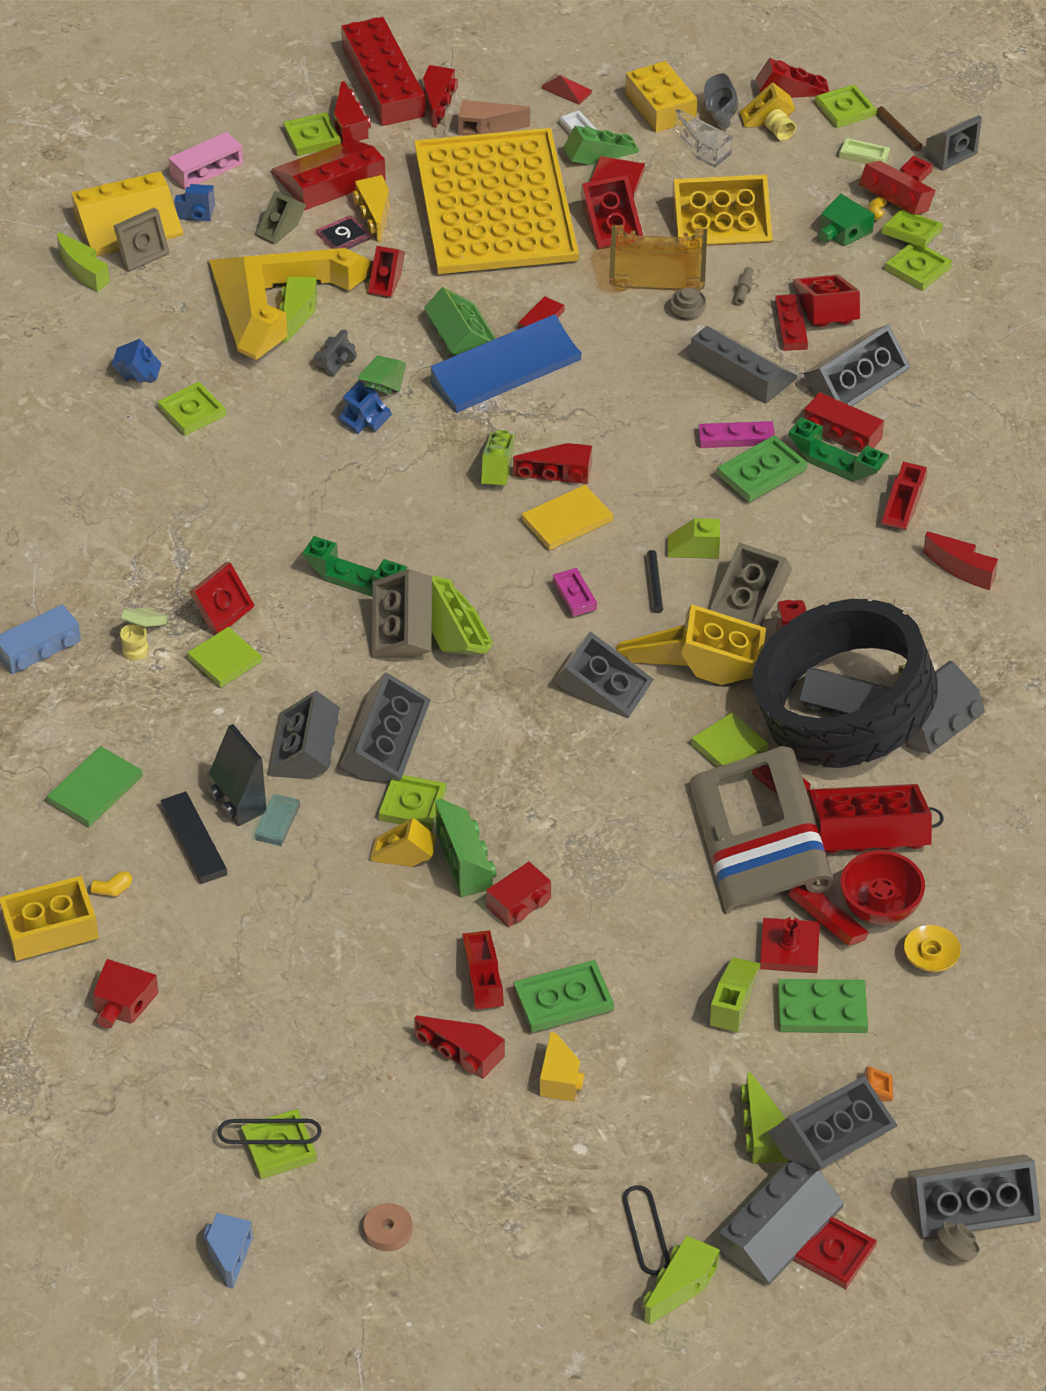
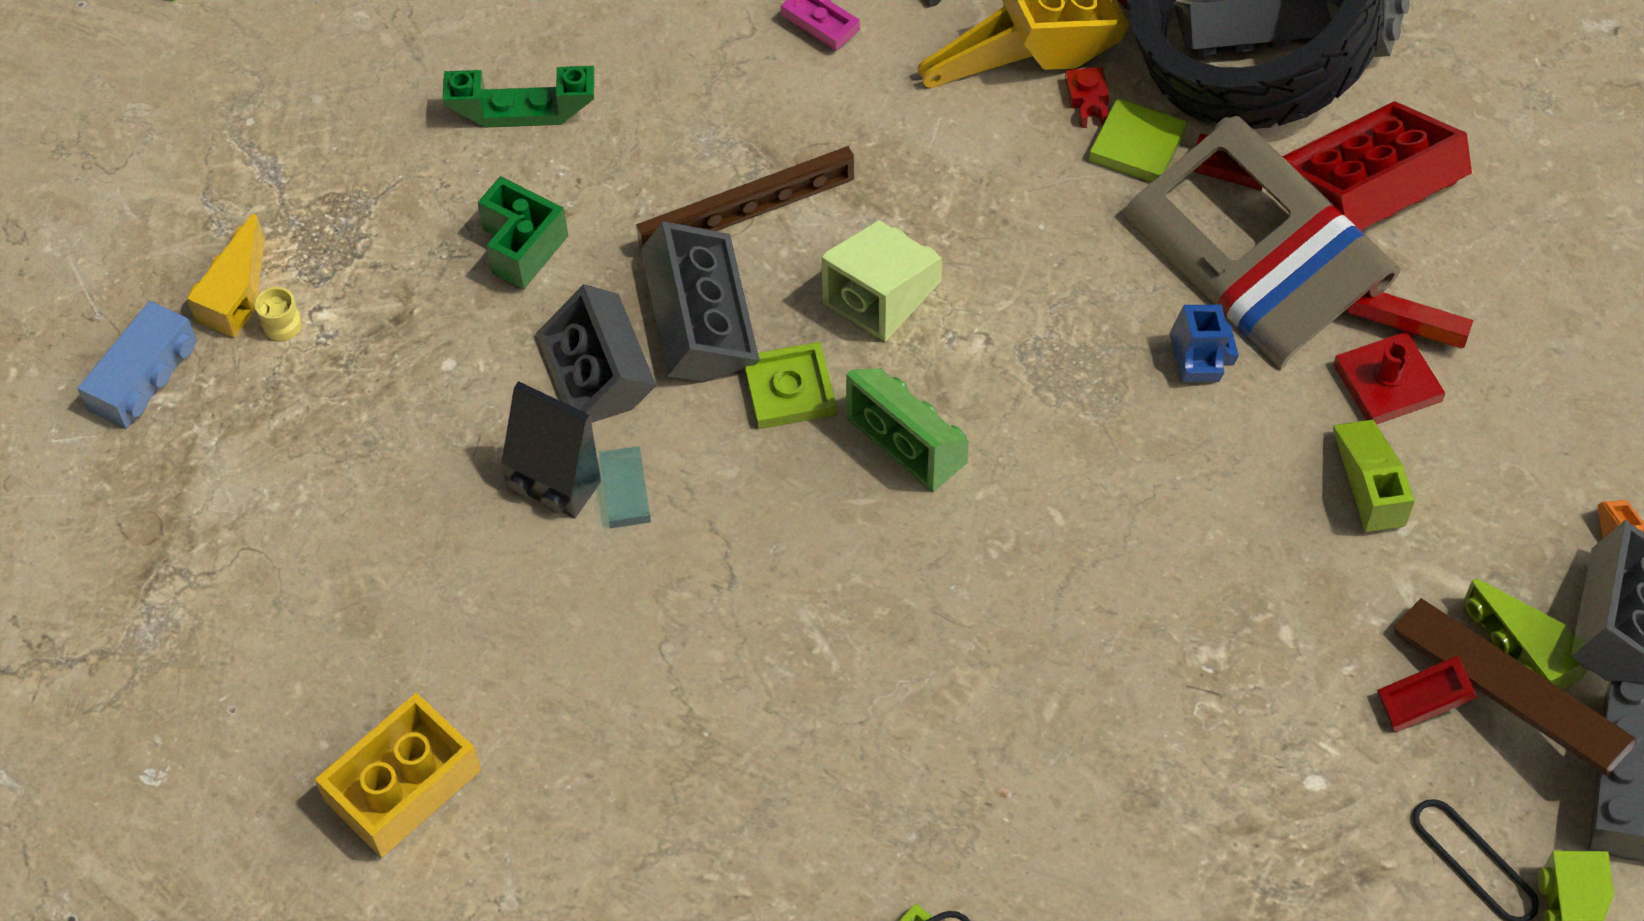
camera: 25 degrees left, 10 degrees up
(94, 786) = (342, 545): bright green tile -> none
(105, 618) = (231, 285): none -> yellow slope
(114, 886) = (458, 683): yellow arm -> none
(123, 993) = (568, 841): red torso -> none
(144, 617) = (275, 273): yellowish green tile -> none
(194, 837) = (526, 561): black tile -> none
(222, 598) = (368, 206): red tile -> none
(224, 657) = (413, 285): lime tile -> none
(305, 649) = (524, 230): none -> green brick
(402, 615) = (626, 134): dark tan slope -> none
(404, 845) = (821, 452): yellow slope -> none
(456, 621) = (693, 115): lime wedge -> none
(463, 1042) = (1083, 701): red slope -> none
(466, 683) = (759, 195): none -> reddish brown tile
(483, 969) = (1034, 583): red slope -> none
(504, 758) = (879, 278): none -> yellowish green slope
(518, 894) = (1014, 457): red brick -> none
(560, 1071) = (1227, 683): yellow slope -> none
(563, 996) = (1160, 575): bright green plate -> none
(603, 677) = (929, 115): dark grey slope -> none
(677, 1125) = (1427, 694): none -> red tile
(682, 876) = (1203, 343): none -> blue brick
(717, 702) = (1088, 92): none -> red plate
(729, 1139) = (1517, 687): none -> reddish brown tile
(822, 1006) = (1482, 443): bright green plate -> none
(882, 887) = (1466, 253): red piece -> none
(934, 940) = (1569, 297): yellow dish -> none

